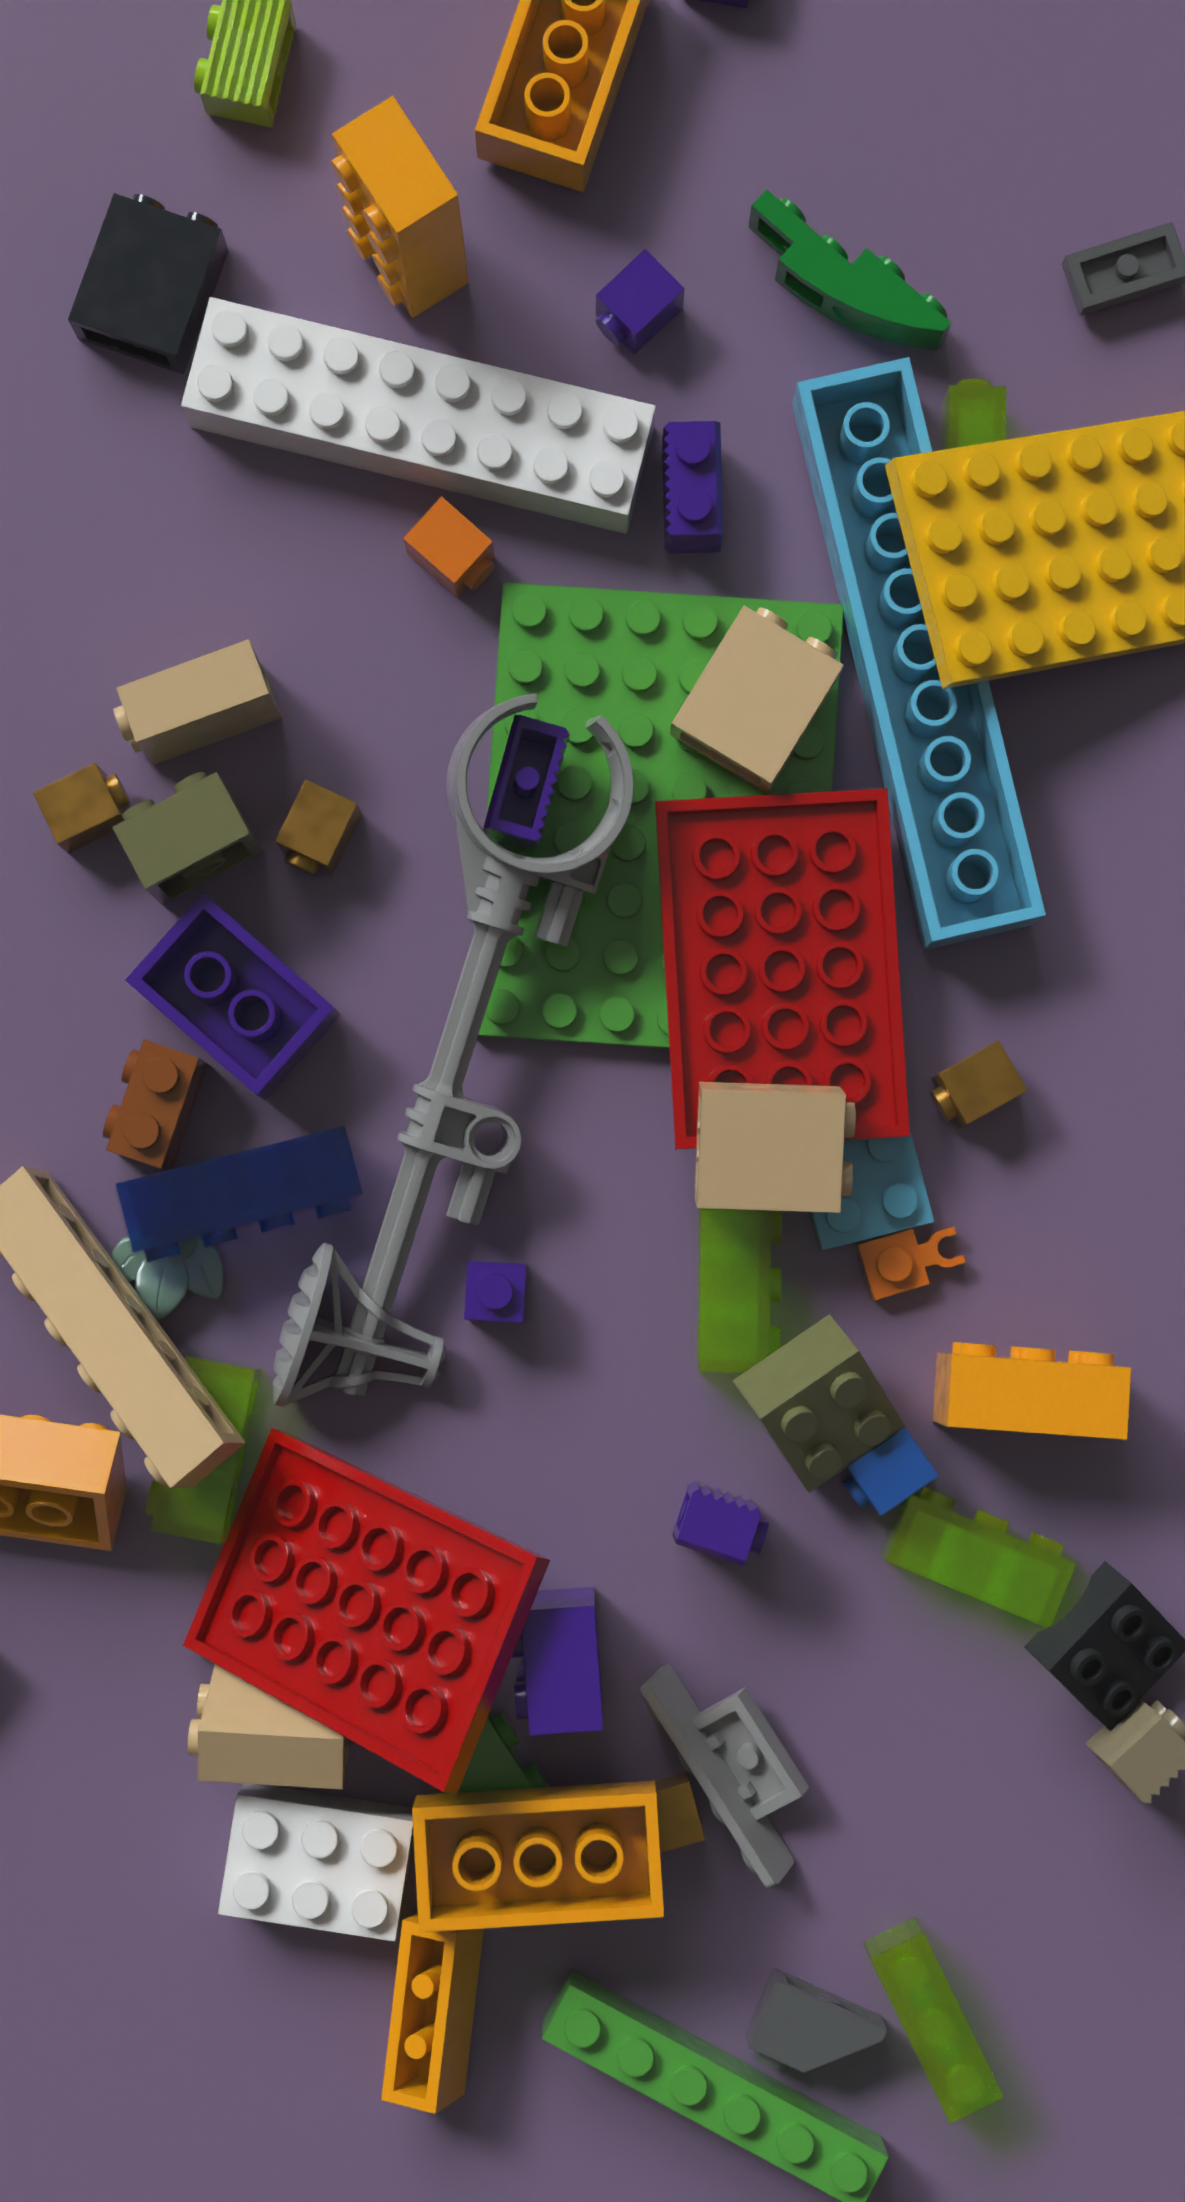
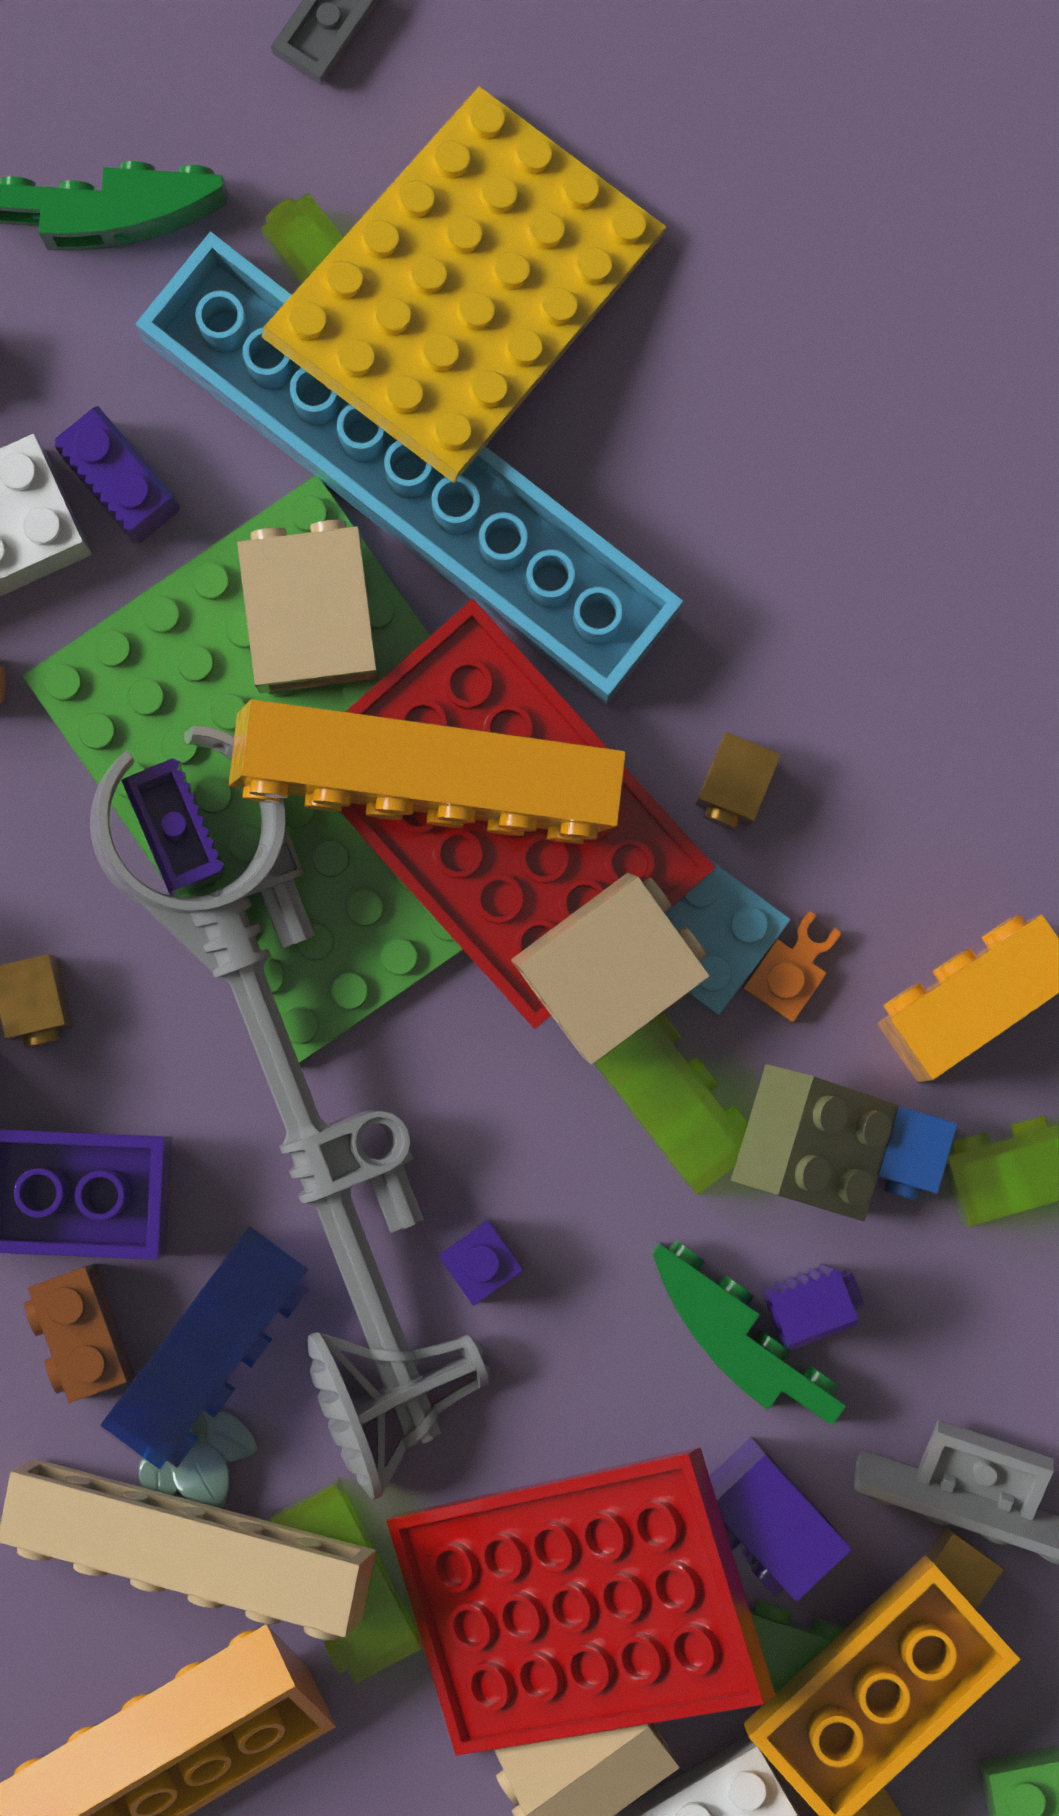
camera: 40 degrees left, 0 degrees up
(637, 1482) = (720, 1323): none -> green slope
(749, 885) = (425, 769): none -> light orange brick

